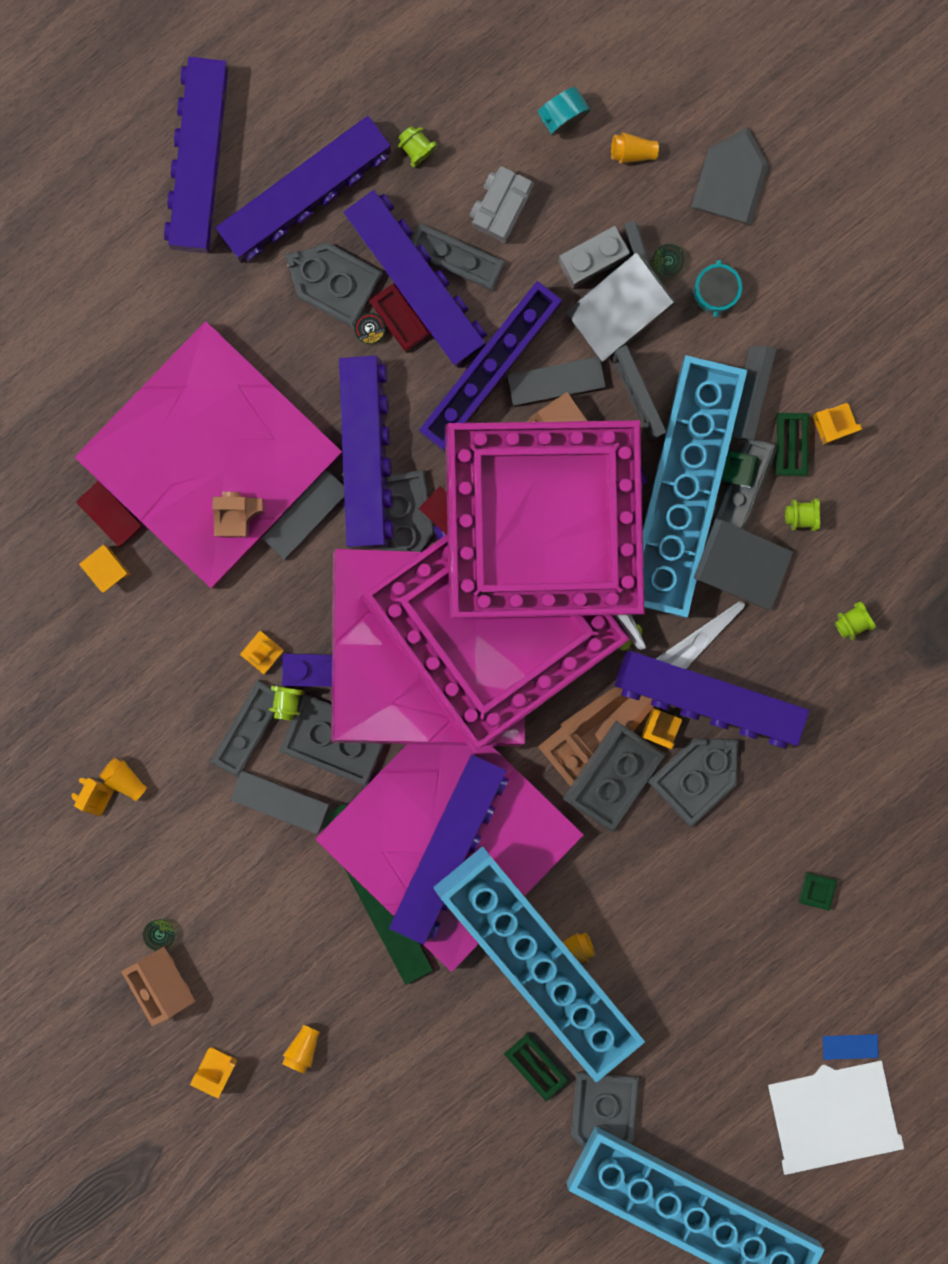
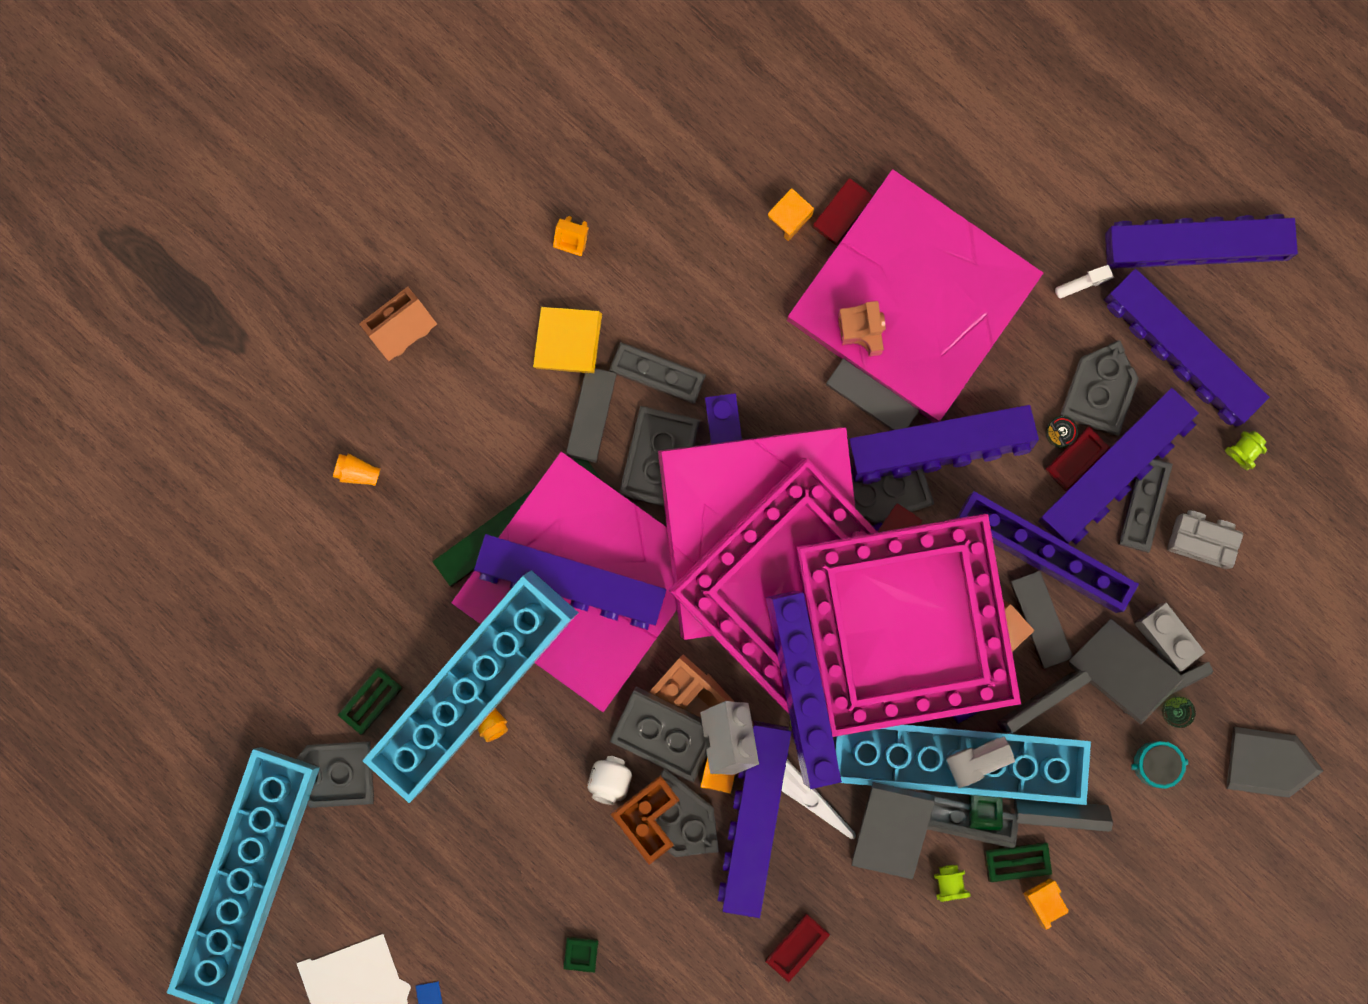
camera: 80 degrees right, 5 degrees down
(122, 779) = (592, 260): light orange cone -> none
(159, 934) = (448, 319): clear green tile -> none
(200, 815) = (567, 340): none -> yellow tile
(214, 1072) = (322, 390): light orange panel -> none
(218, 273) = (1093, 277): none -> white bar
(262, 652) = (733, 375): light orange tile -> none
(285, 702) = (688, 404): lime brick -> none
(563, 111) = (1307, 586): teal piece -> none
(592, 633) = (803, 689): none -> dark purple brick
(629, 713) = (730, 738): none -> light grey brick
(632, 148) = (1282, 660): light orange cone -> none
(651, 838) = (609, 780): none -> white head
(691, 477) = (972, 764): none -> light grey piece
(691, 814) = (639, 816): none -> dark orange brick
(842, 676) = (797, 947): none -> dark red tile
(854, 622) = (853, 951): lime brick -> none

